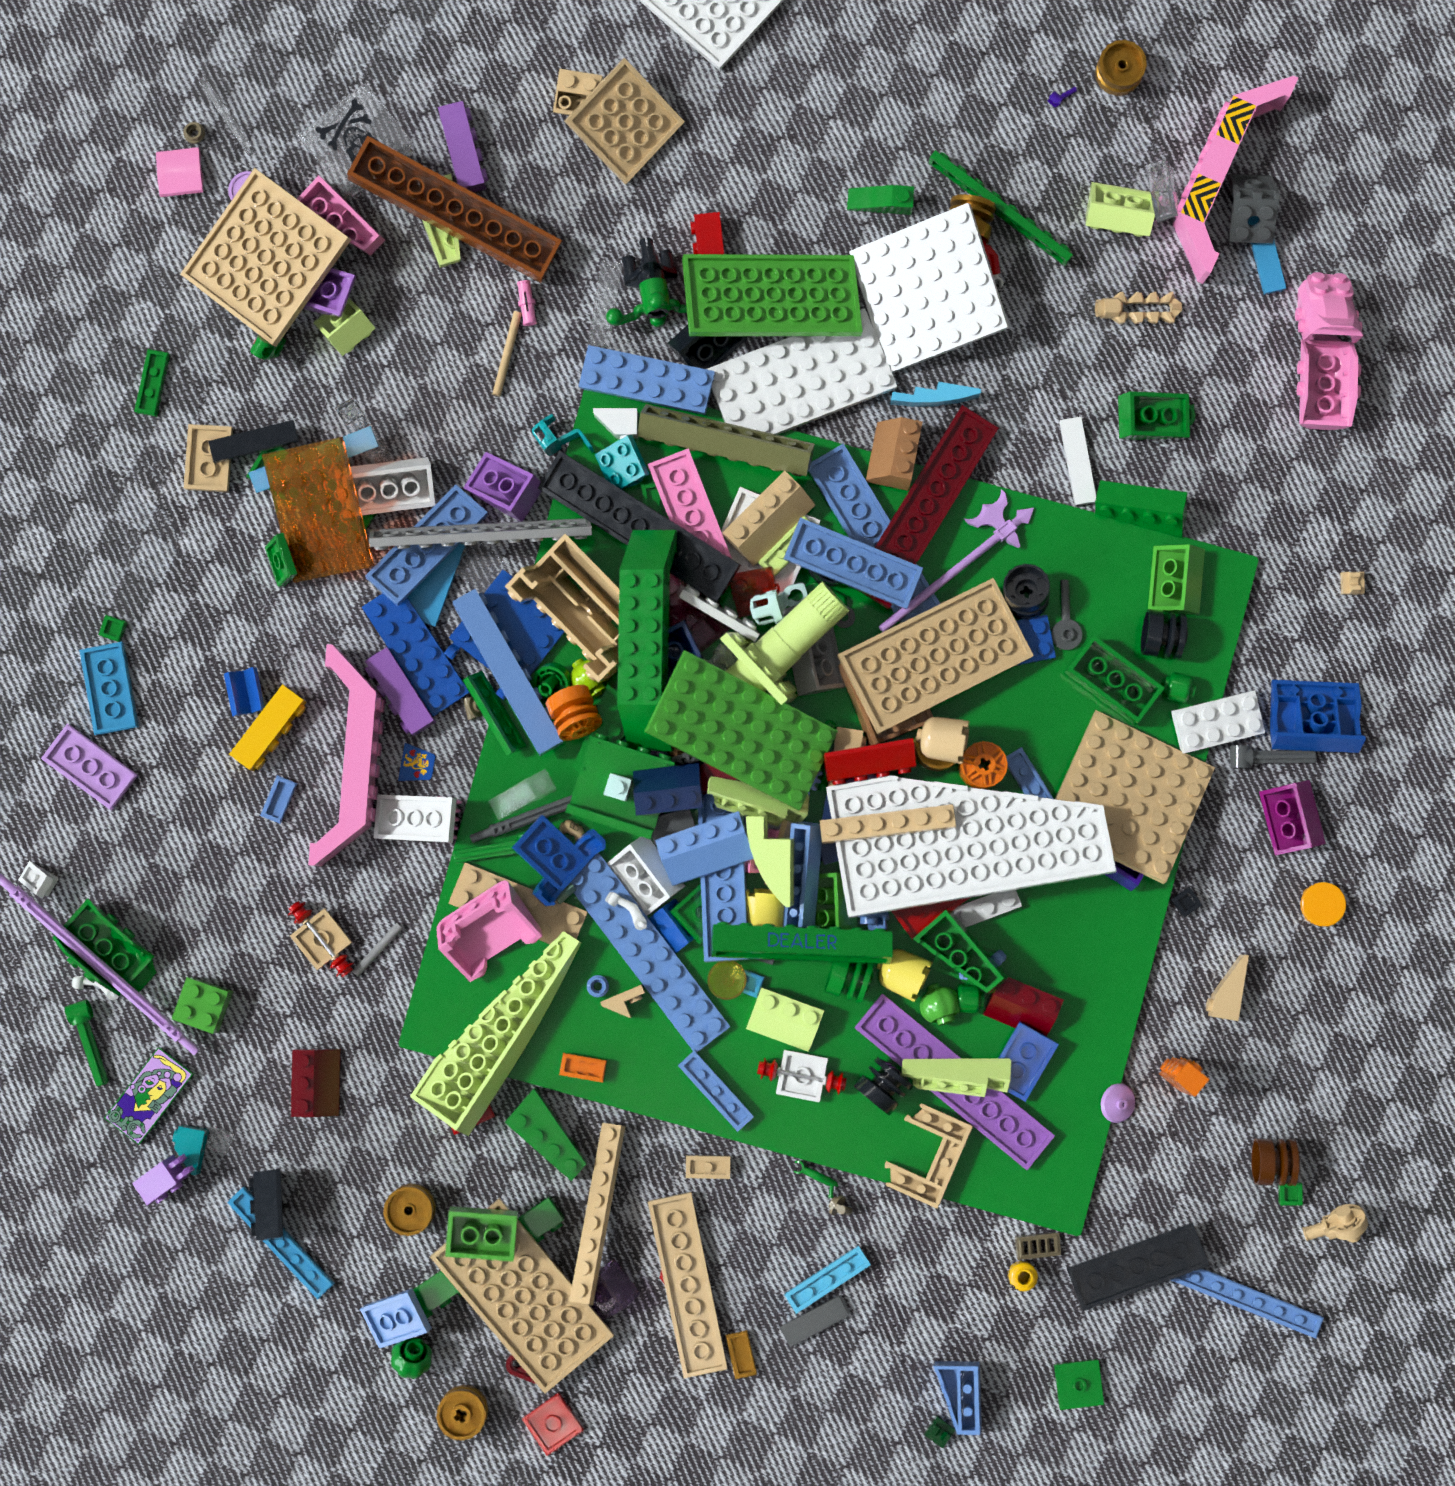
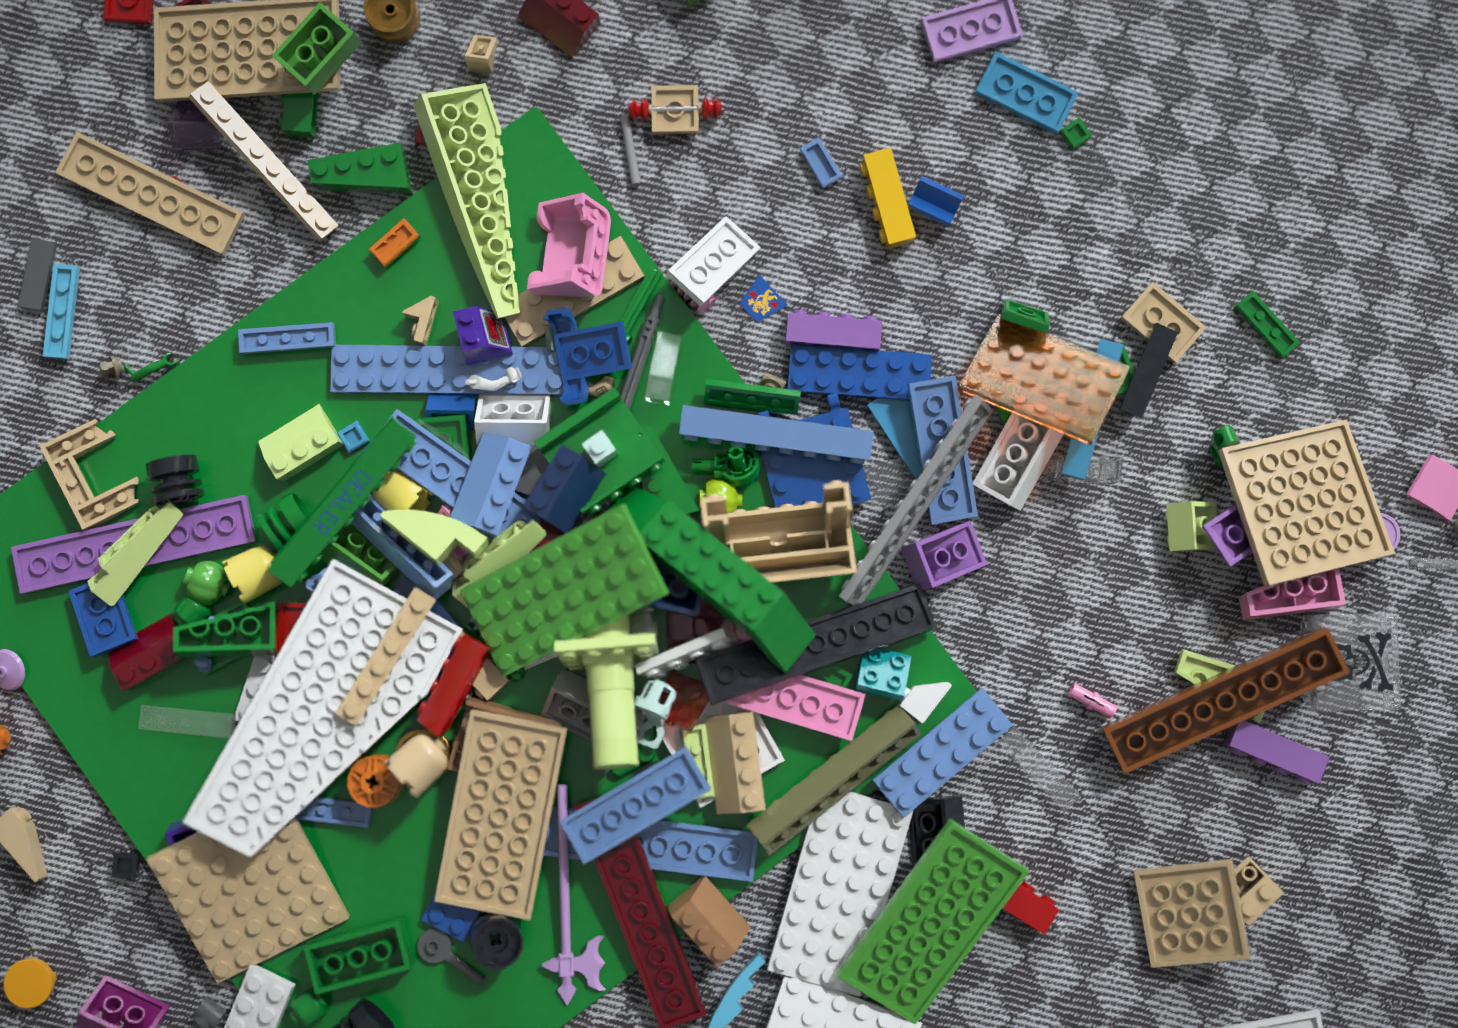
camera: 125 degrees right, 0 degrees up
(359, 763) = (805, 256): bright pink slope -> none
(388, 1118) = (481, 54): none -> tan slope
(507, 353) = (1060, 649): tan bar -> none
(550, 443) = (948, 625): teal piece -> none
(573, 712) = (696, 461): orange wheel -> none
(590, 986) = (447, 302): medium blue plate -> none
(602, 945) = (481, 335): none -> dark purple slope
(652, 282) = (1025, 824): wheel -> none
(708, 1166) = (231, 284): tan plate -> none
(726, 980) = (369, 417): clear yellow piece -> none
(741, 1354) = (59, 194): pearl gold tile -> none
(801, 1076) = (241, 419): white plate -> none
(1050, 938) = (187, 721): none -> clear tile

